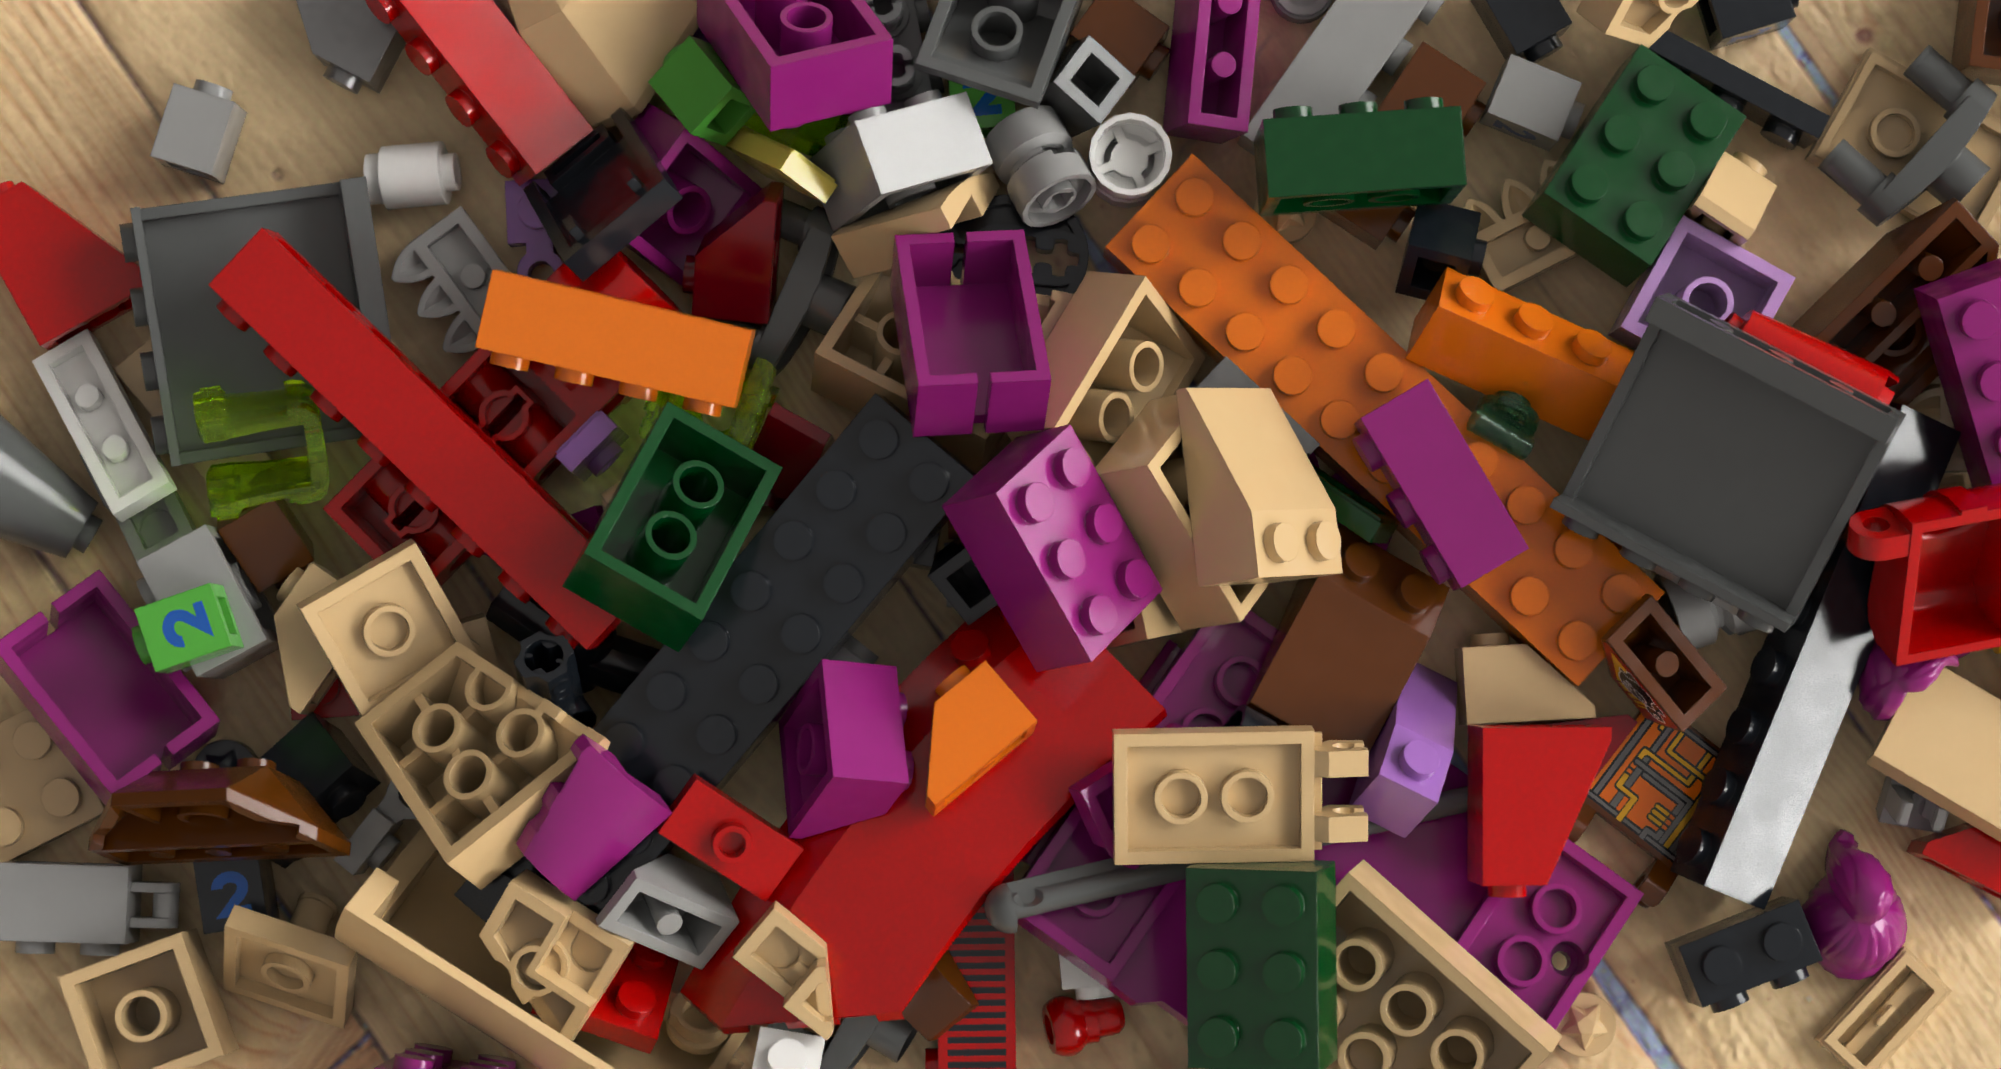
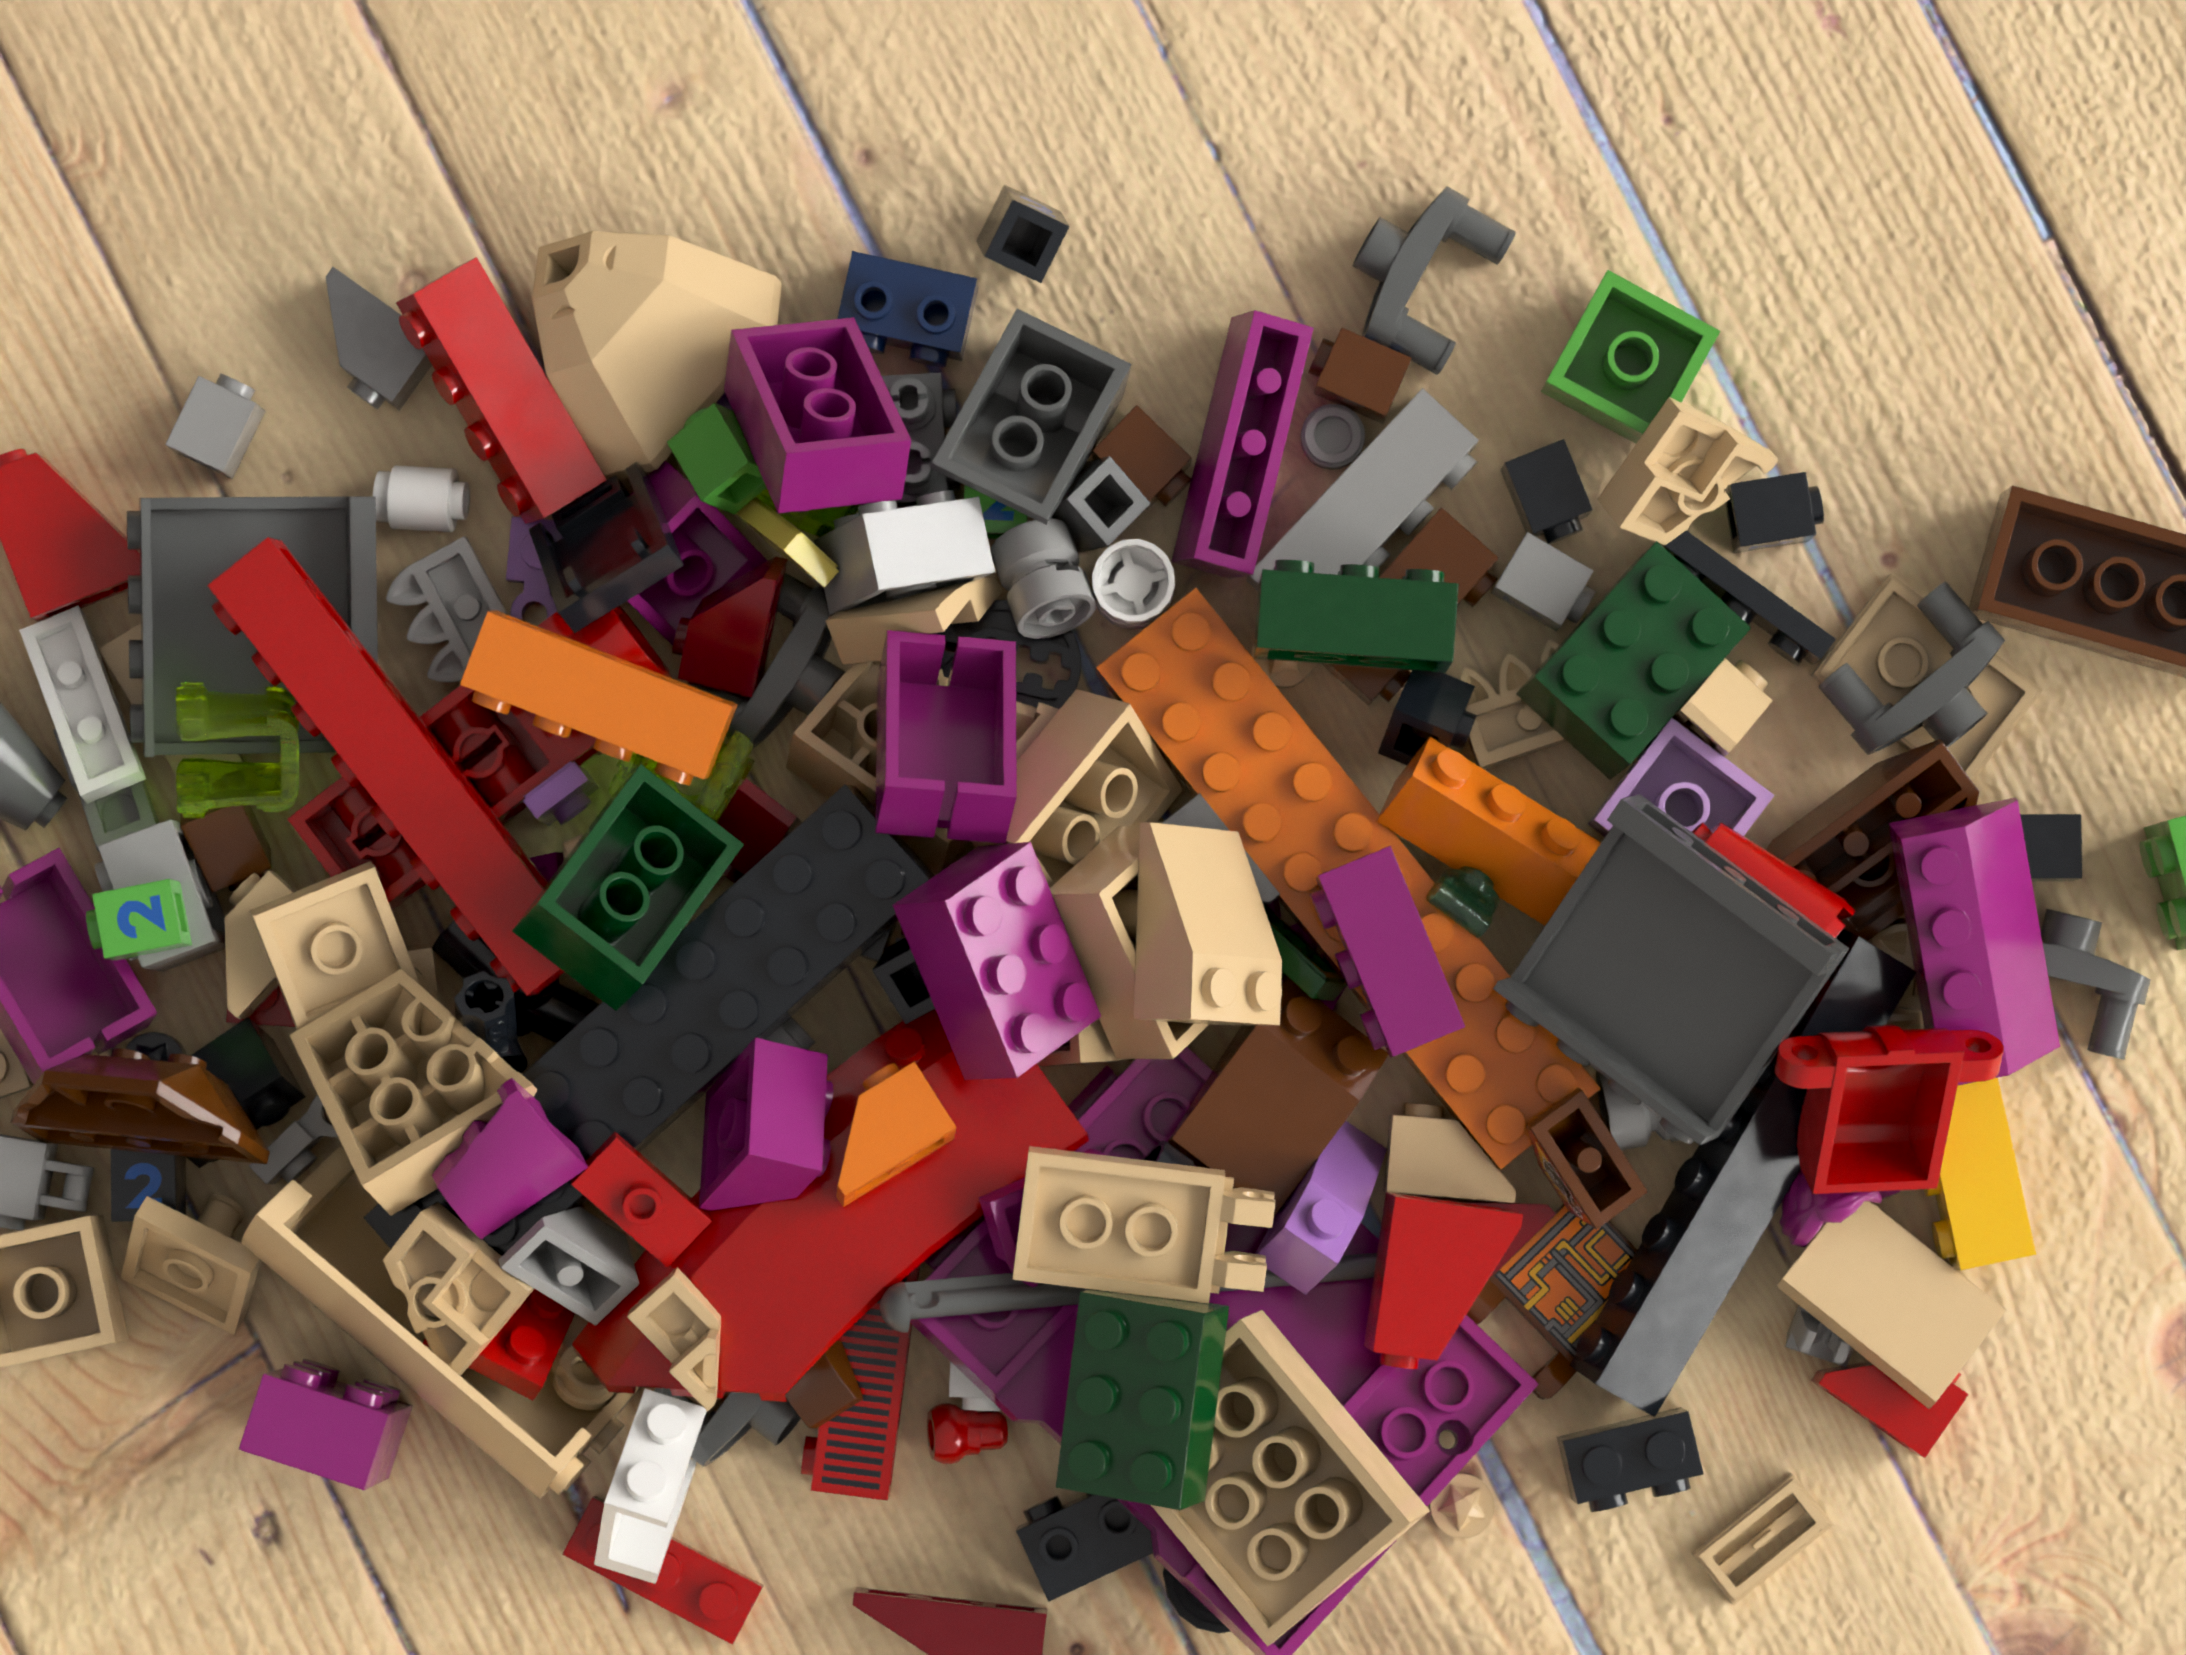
camera: 15 degrees right, 0 degrees up
(1855, 912) = (1746, 1434): magenta hair -> none

